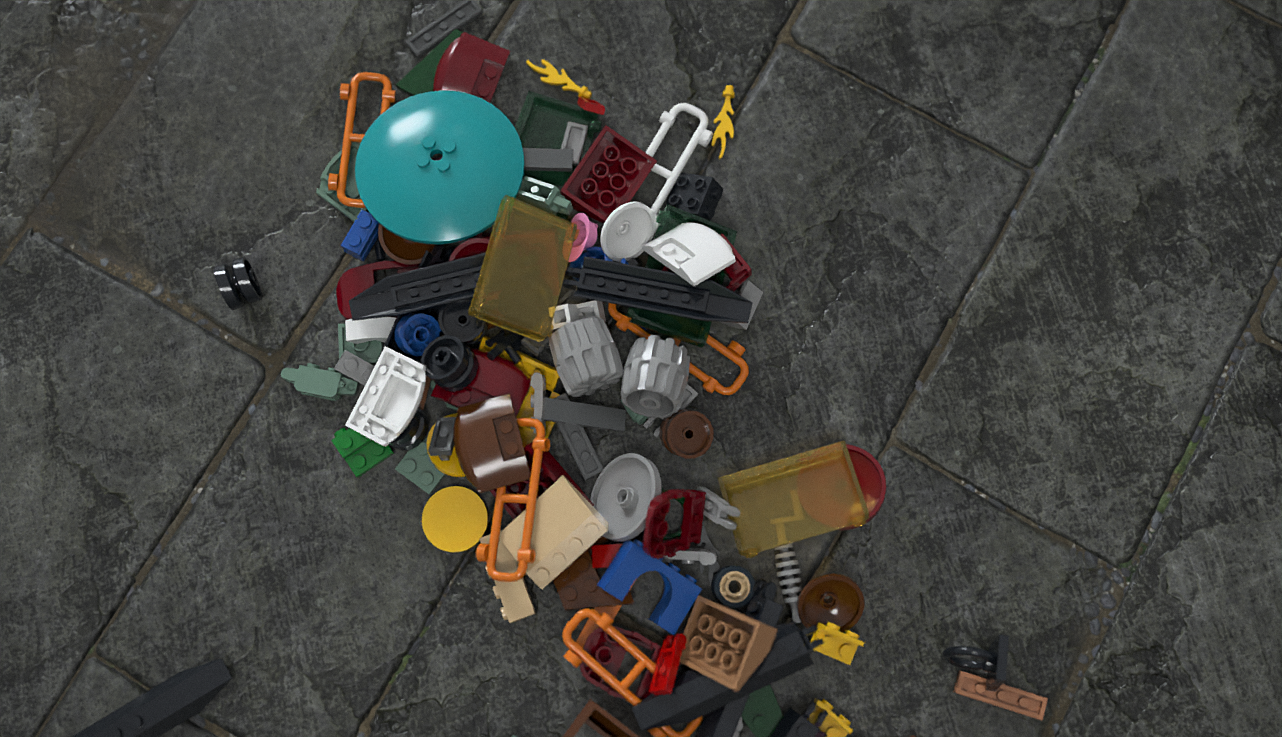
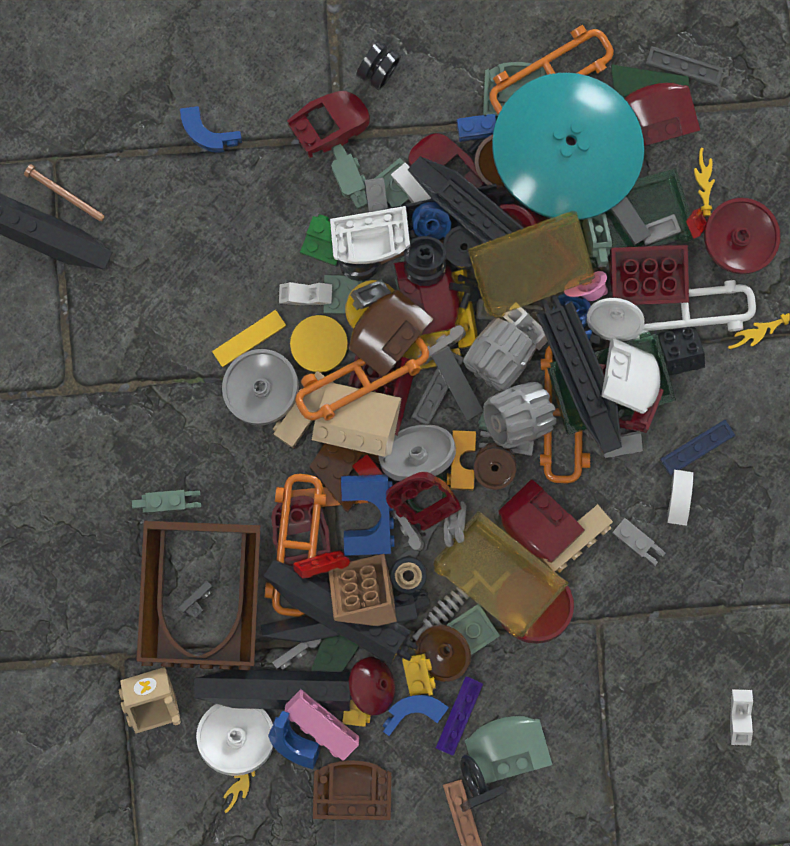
camera: 60 degrees right, 5 degrees up
(83, 684) = (30, 171): none -> nougat bar
(181, 492) = (204, 138): none -> blue arch
(256, 341) = (345, 110): none -> dark red slope
(398, 501) = (304, 294): none -> white brick
(402, 583) = (249, 338): none -> yellow tile
(455, 604) = (260, 387): none -> light grey dish
(630, 77) = (742, 236): none -> dark red dish
(673, 473) = (460, 477): none -> light orange arch
(766, 429) = (539, 522): none -> dark red slope
(791, 244) = (697, 447): none -> dark blue tile
(802, 407) = (594, 523): none -> tan brick
(818, 697) = (371, 686): none -> dark red dish
(824, 558) = (475, 628): none -> sand green plate
(831, 288) = (680, 497): none -> white brick
(840, 354) = (637, 540): none -> light grey hinge
(858, 671) = (414, 704): none -> blue arch
(899, 631) = (459, 715): none -> dark purple plate
(958, 604) = (508, 747): none -> sand green slope
(1068, 374) = (740, 717): none -> white brick

